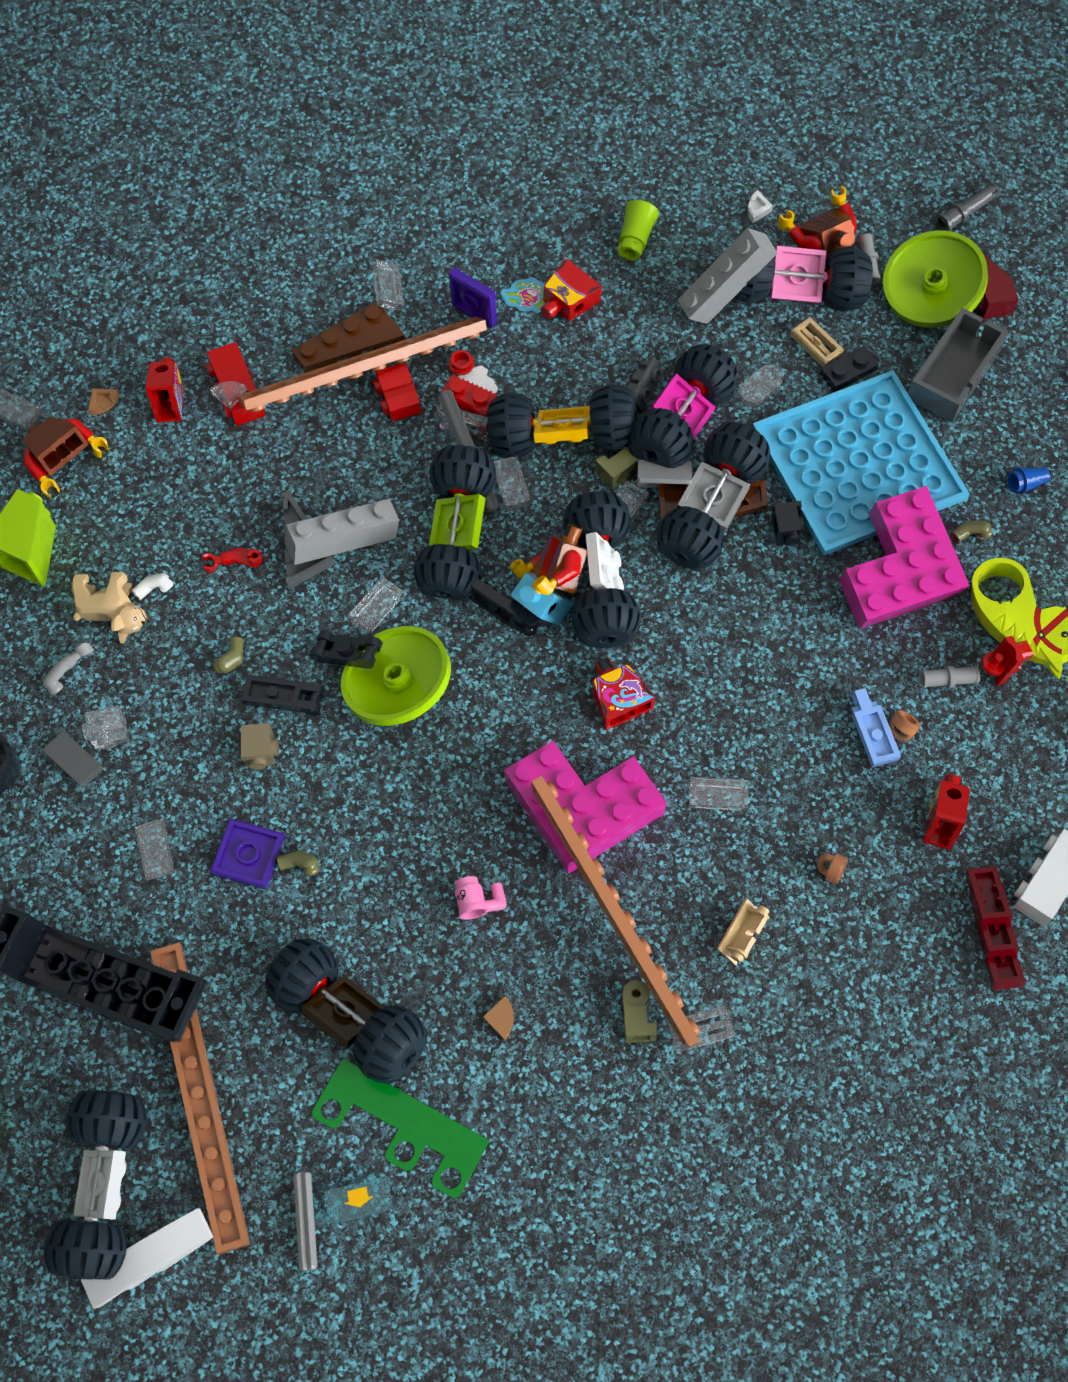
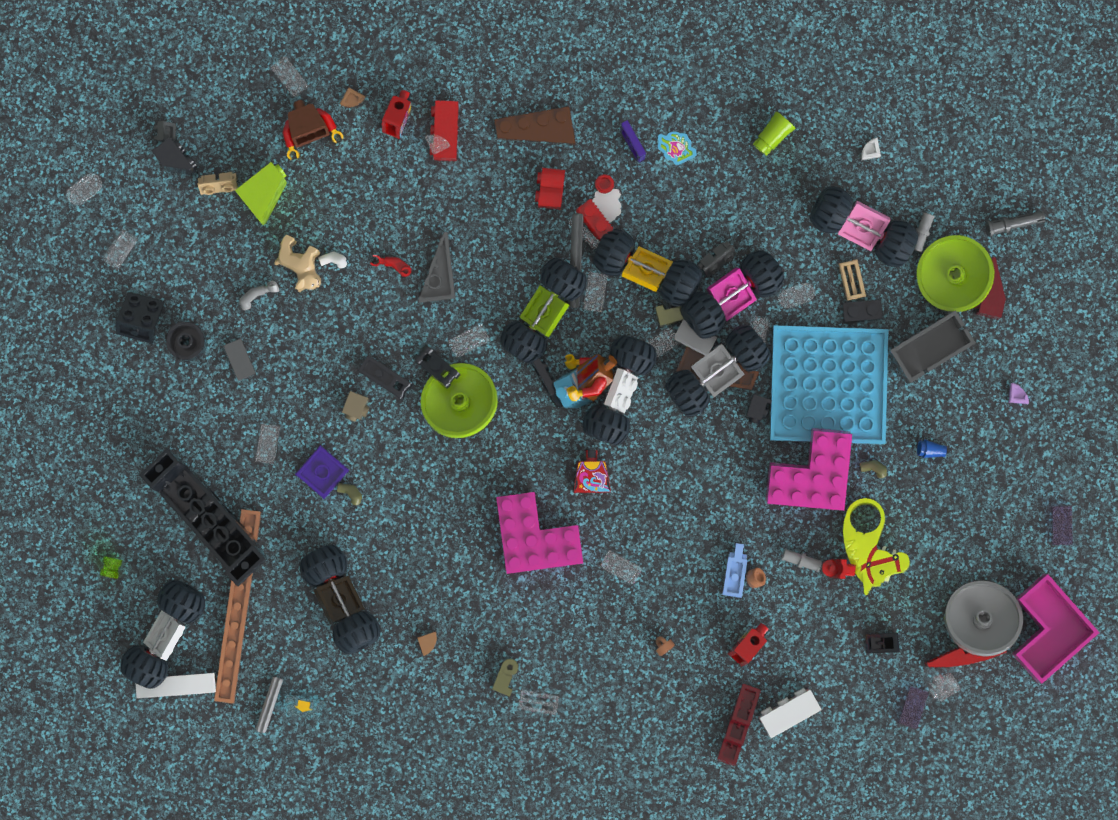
camera: 20 degrees right, 20 degrees up
(105, 727) = (266, 350): clear brick -> none
(232, 658) = (362, 337): olive arm -> none
(341, 531) = (467, 283): light grey brick -> none
(353, 367) = (536, 159): plate -> none
(388, 285) = (582, 97): clear tile -> none
(412, 1118) = (352, 676): green piece -> none
(471, 898) = (442, 563): bright pink piece -> none
(569, 292) = (702, 163): red torso -> none
(621, 921) = (518, 608): nougat plate -> none
(727, 276) = (808, 214): light grey brick -> none
(739, 936) = (583, 663): tan hinge -> none
(826, 231) = (902, 200): torso -> none

